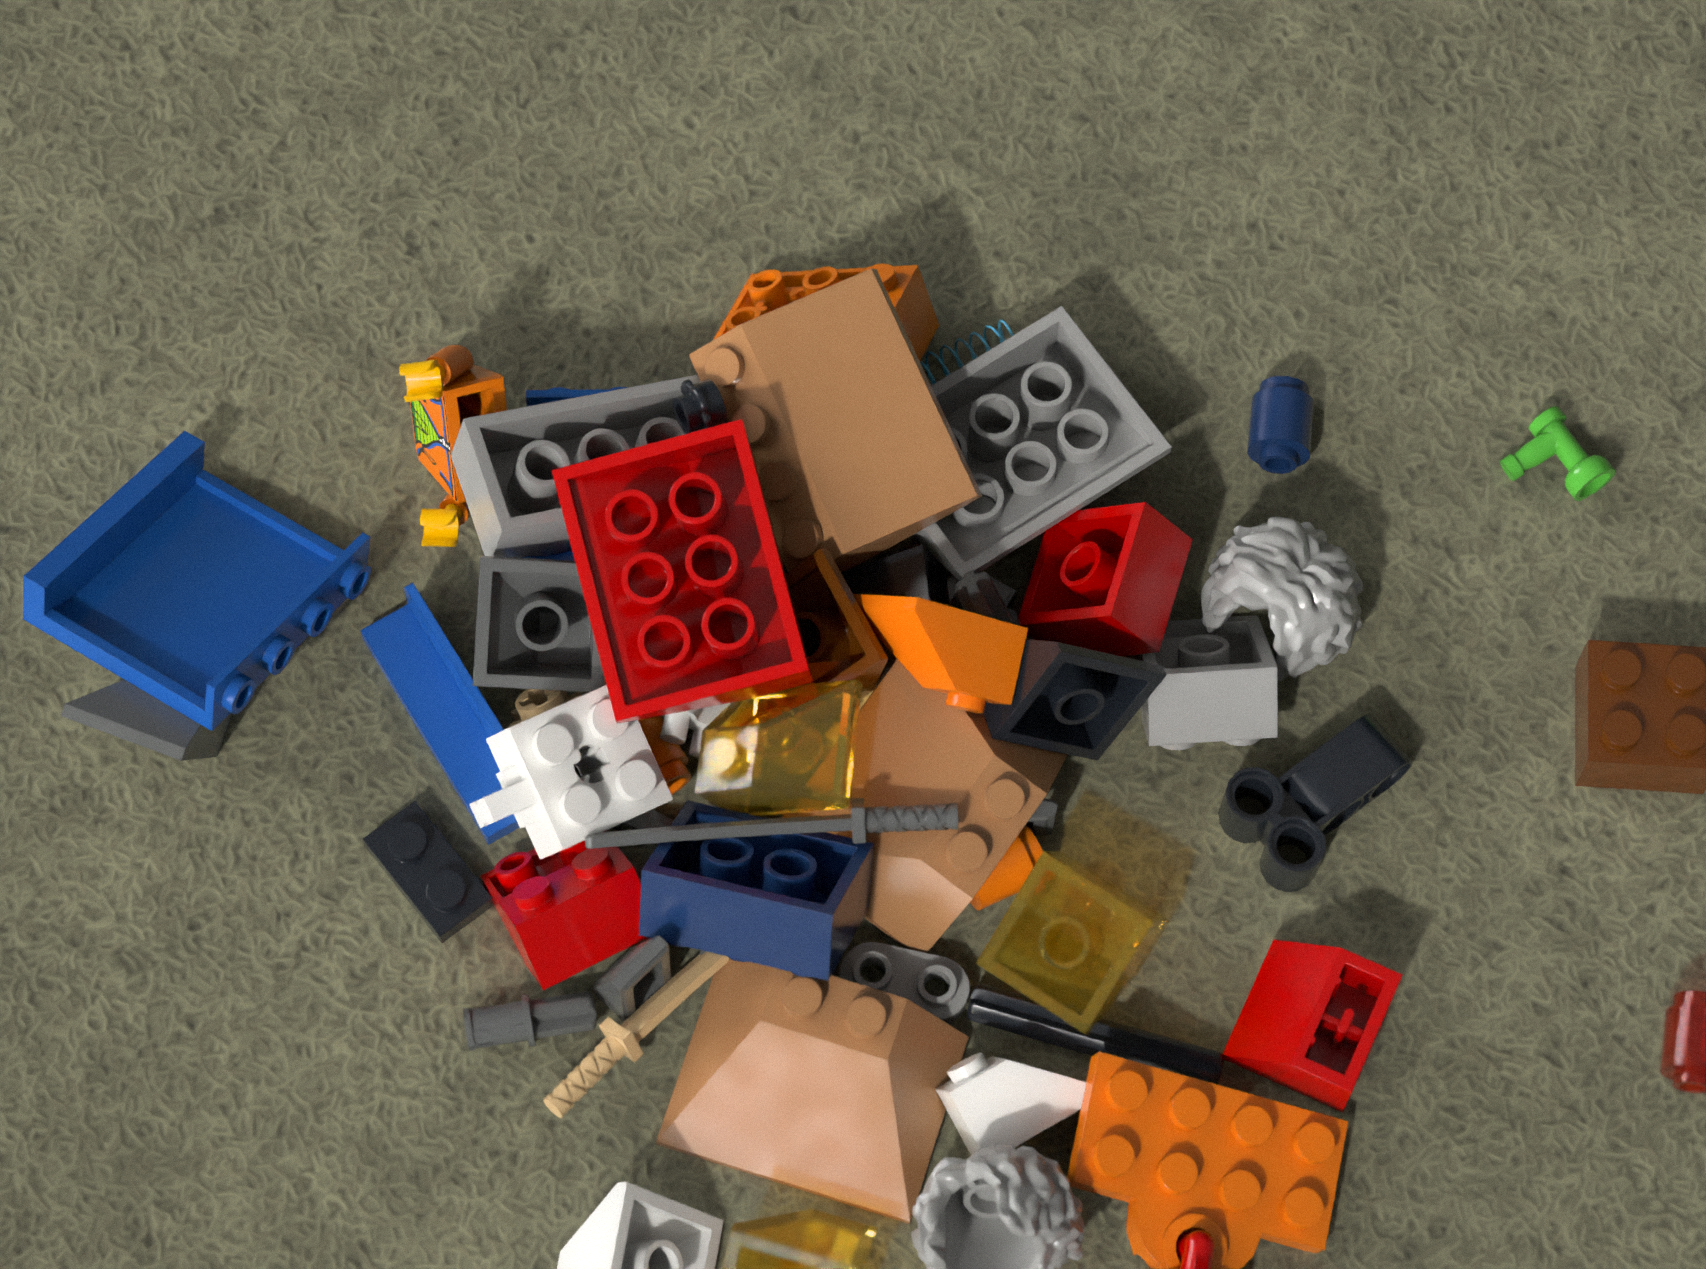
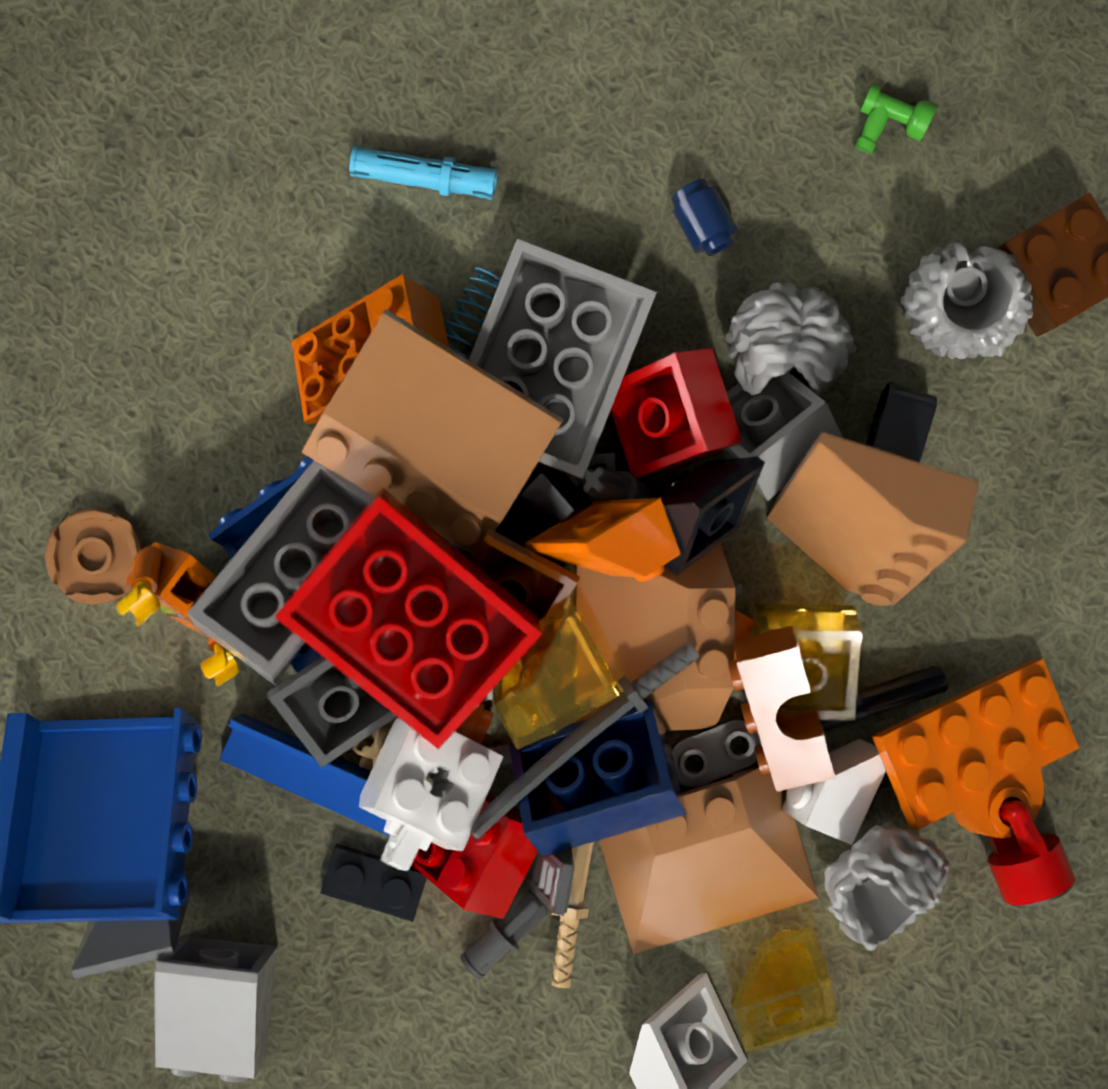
camera: 30 degrees left, 20 degrees up
(162, 871) = (213, 1007): none -> slope
(374, 375) = (108, 556): none -> medium nougat tile
(699, 406) = (337, 488): black plate -> none
(988, 1005) = (791, 745): none -> arch
(1031, 213) = (436, 174): none -> medium azure pin
(1241, 799) = (873, 517): none -> medium nougat slope
(1312, 1019) = (986, 612): red slope -> none
(1506, 675) = (967, 301): none -> light grey hair

